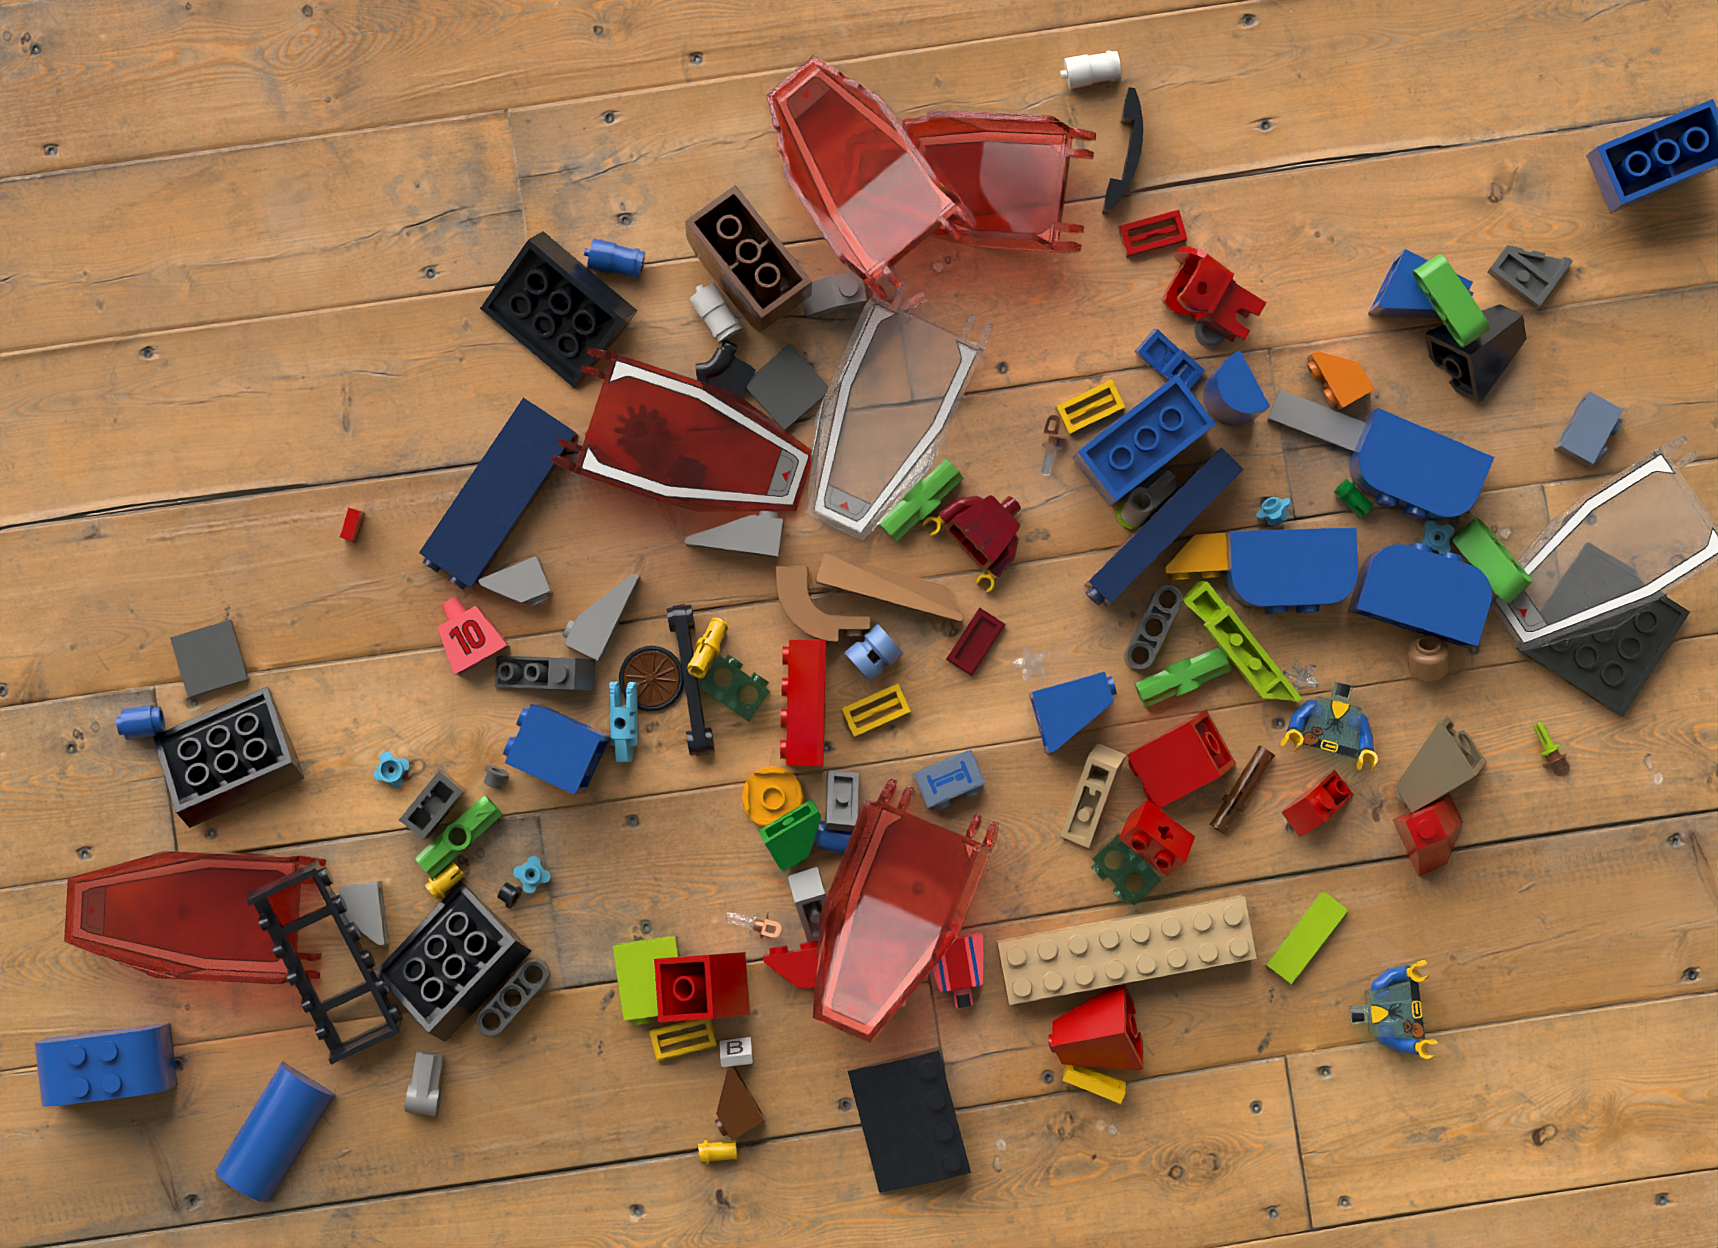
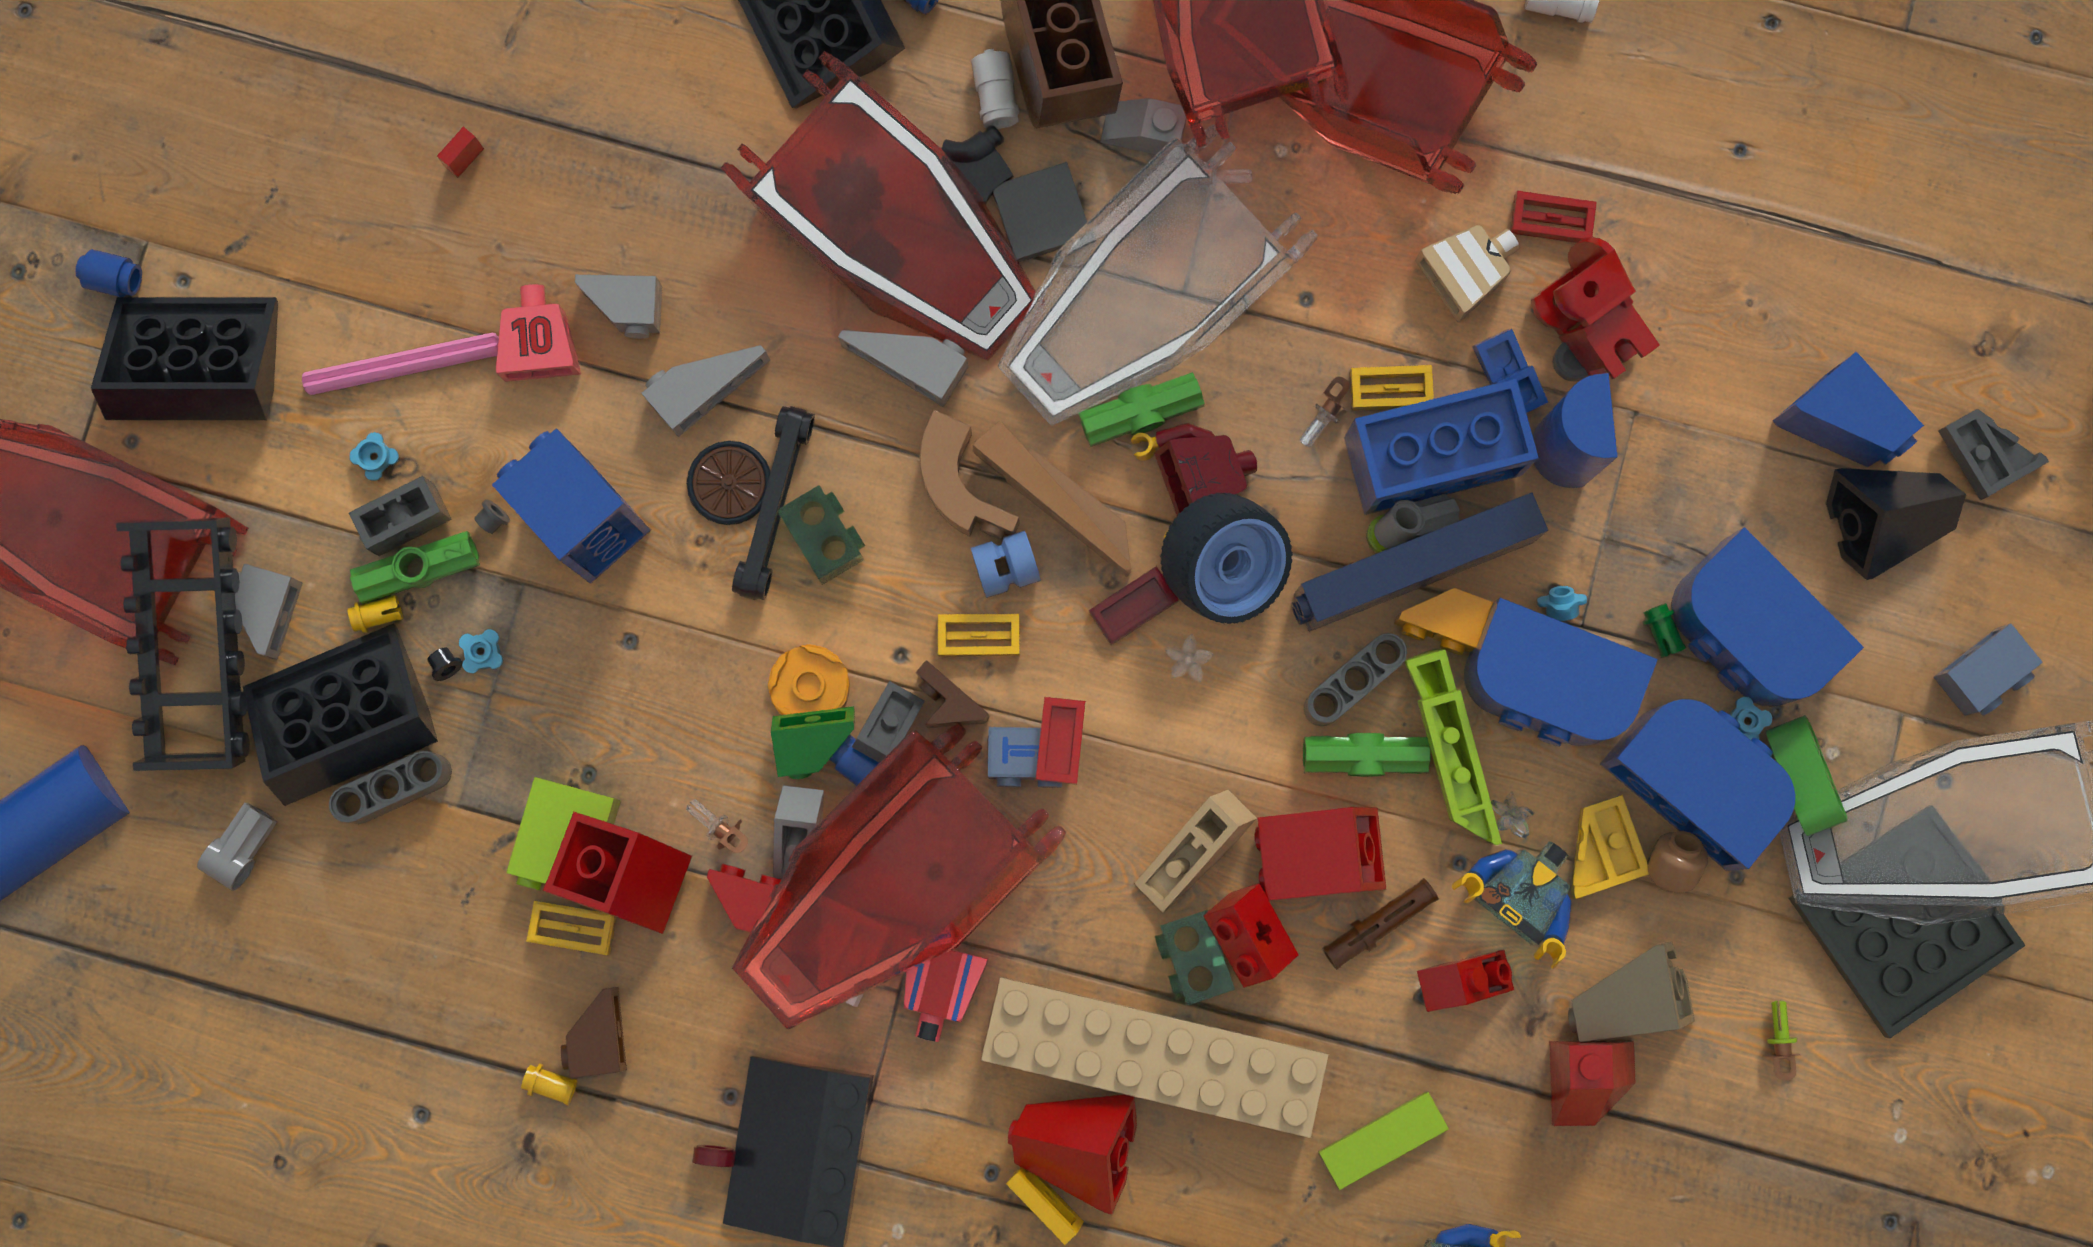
camera: 30 degrees right, 5 degrees down
(209, 658) = (225, 236): dark grey tile -> none
(380, 695) = (400, 363): none -> bright pink axle
(496, 495) = (642, 189): dark blue brick -> none
(545, 673) = (607, 421): dark grey slope -> none
(621, 736) = (672, 516): medium azure hinge -> none
(707, 647) = (809, 471): yellow pin -> none
(736, 1052) = (625, 972): white tile -> none
(805, 702) = (898, 586): red slope -> none
(853, 1149) = (714, 1156): none -> dark red tile
(884, 767) = (957, 706): none -> reddish brown slope
(968, 761) = (1060, 740): none -> red tile
(1028, 584) = (1226, 558): none -> wheel
(1070, 707) = (1214, 727): blue slope -> none
(1108, 297) = (1467, 267): none -> tan torso
(1132, 116) = (1586, 73): black slope -> none
(1316, 420) = (1657, 519): light grey tile -> none
(1341, 378) = (1709, 480): orange slope -> none
(1376, 669) = (1606, 848): none -> yellow wing
(1451, 300) = (1889, 433): bright green beam -> none

